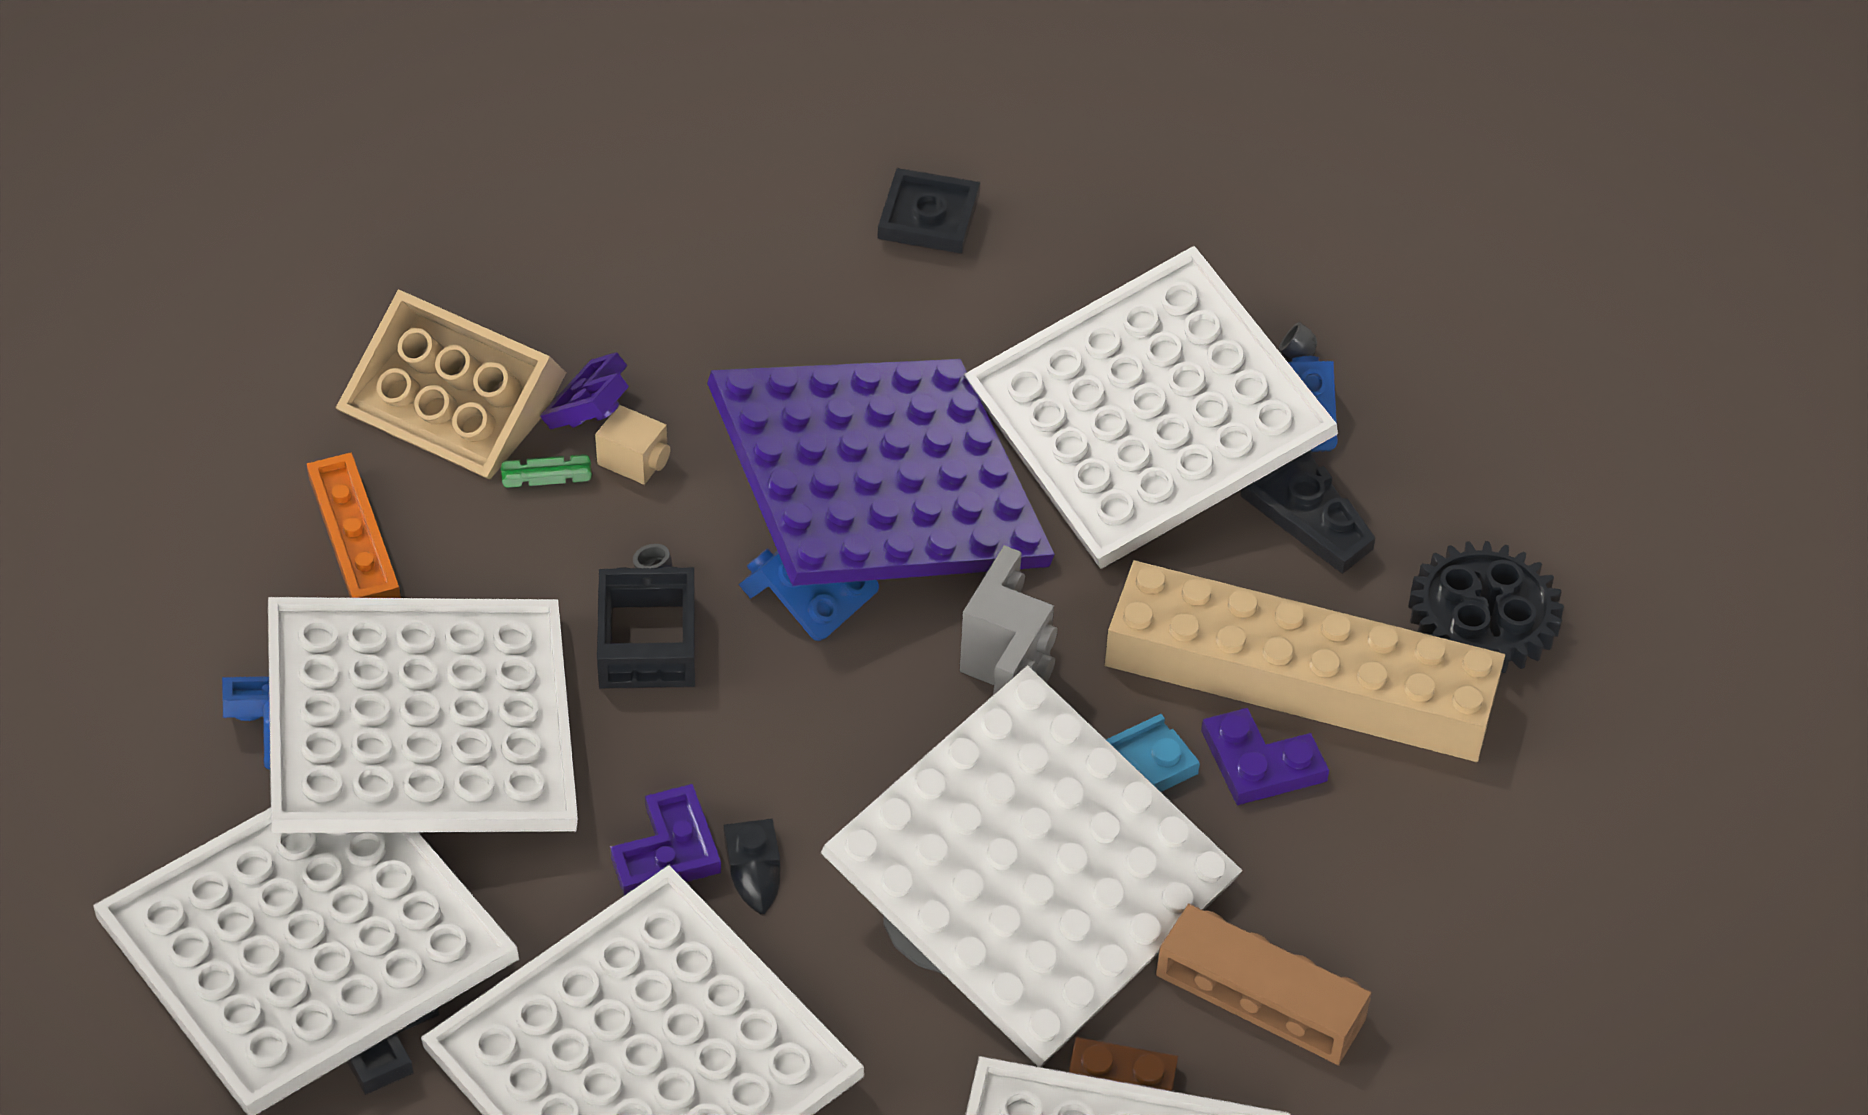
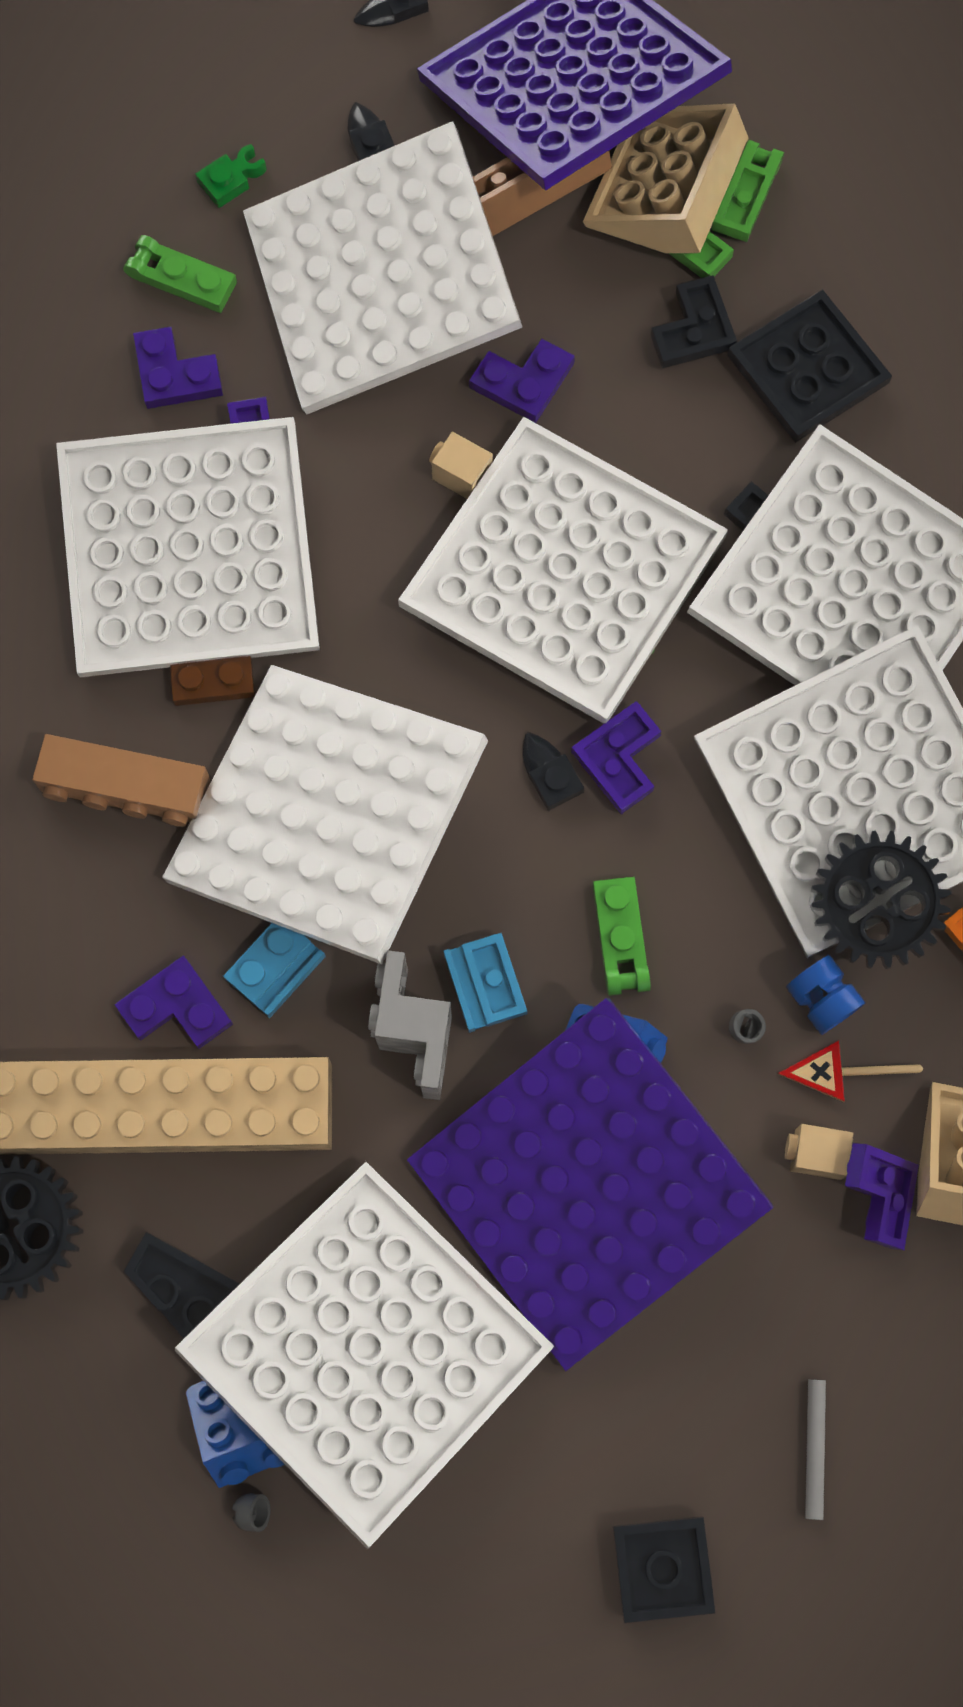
camera: 165 degrees right, 25 degrees up
(461, 598) = (903, 930): none -> black gear
(546, 471) = (884, 1104): axle -> none
(558, 559) = (833, 1008): none -> blue wheel
(588, 518) = (825, 1073): none -> piece
(646, 663) = (712, 913): black window -> none
(745, 685) = (621, 934): none -> bright green plate
(749, 255) = (815, 1449): none -> light grey bar
(912, 678) = (485, 982): none -> dark azure plate

